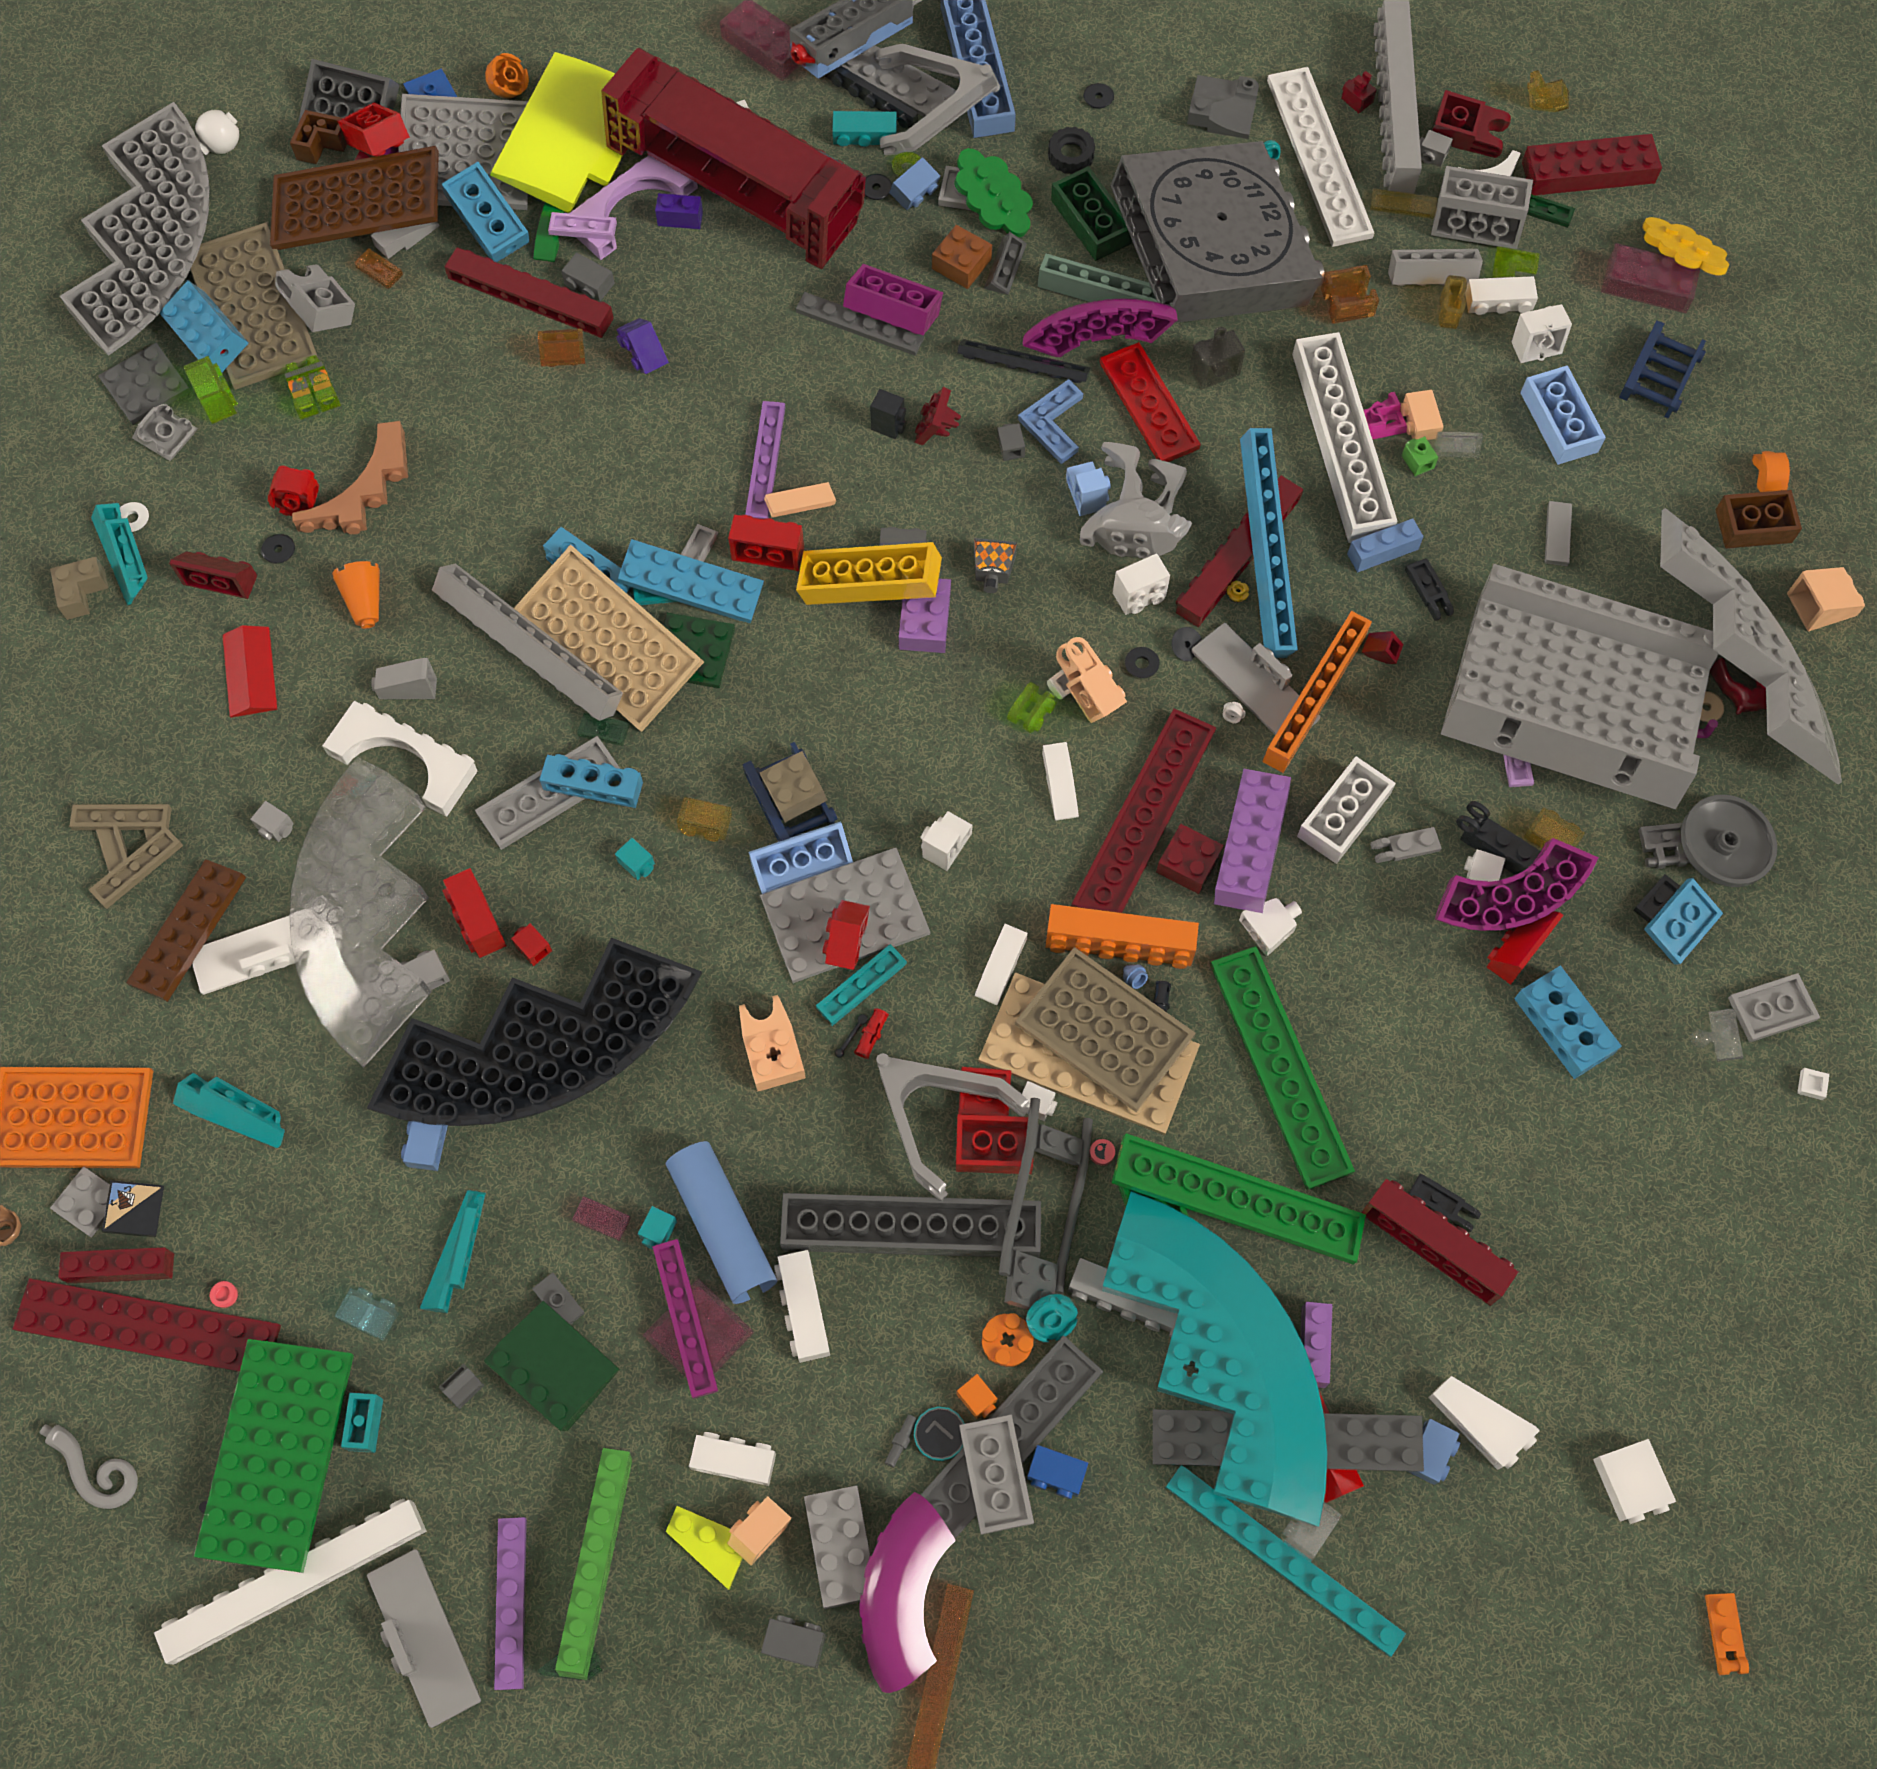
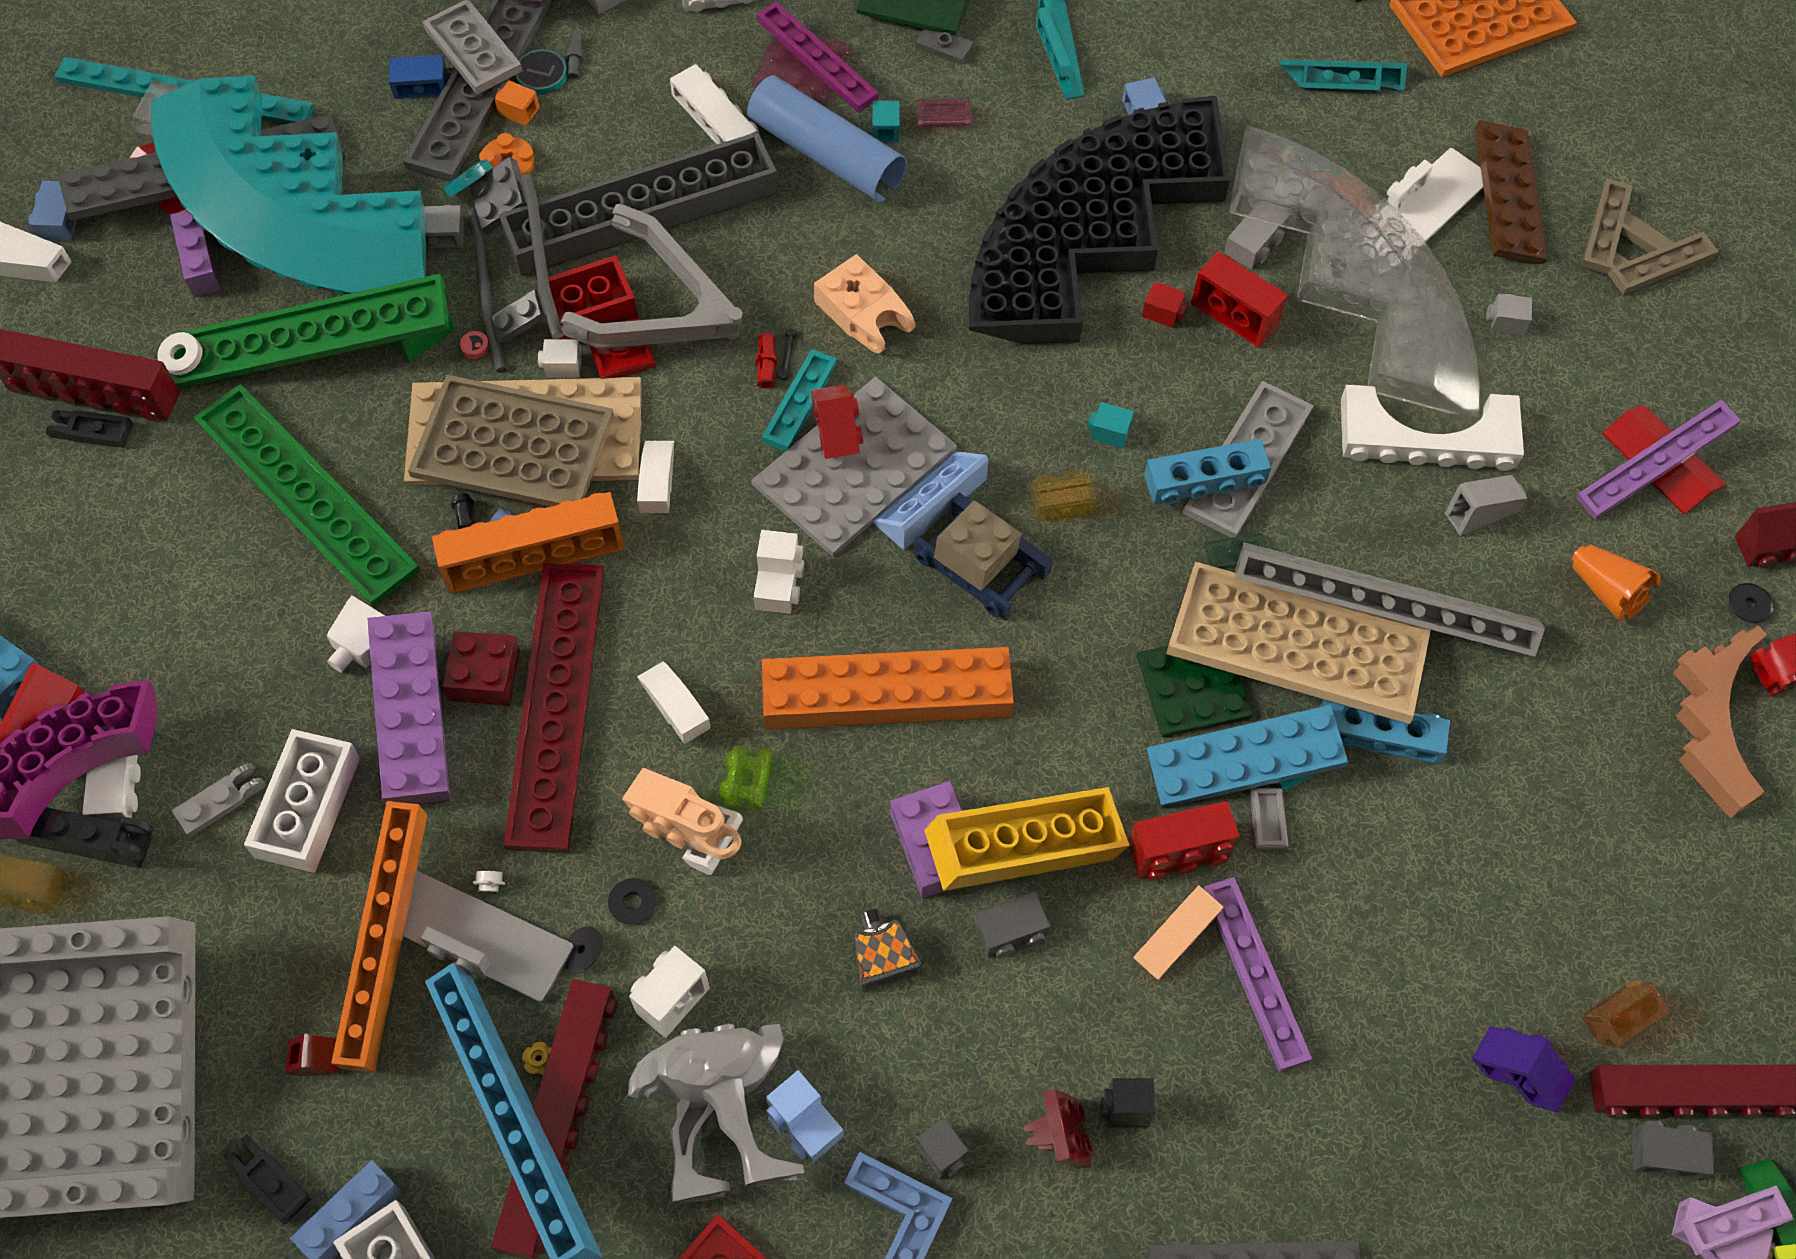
camera: 155 degrees right, 5 degrees down
(261, 658) = (1658, 459): none -> medium lavender plate
(907, 726) = (887, 688): none -> orange brick
(1343, 1241) = (188, 361): none -> white piece

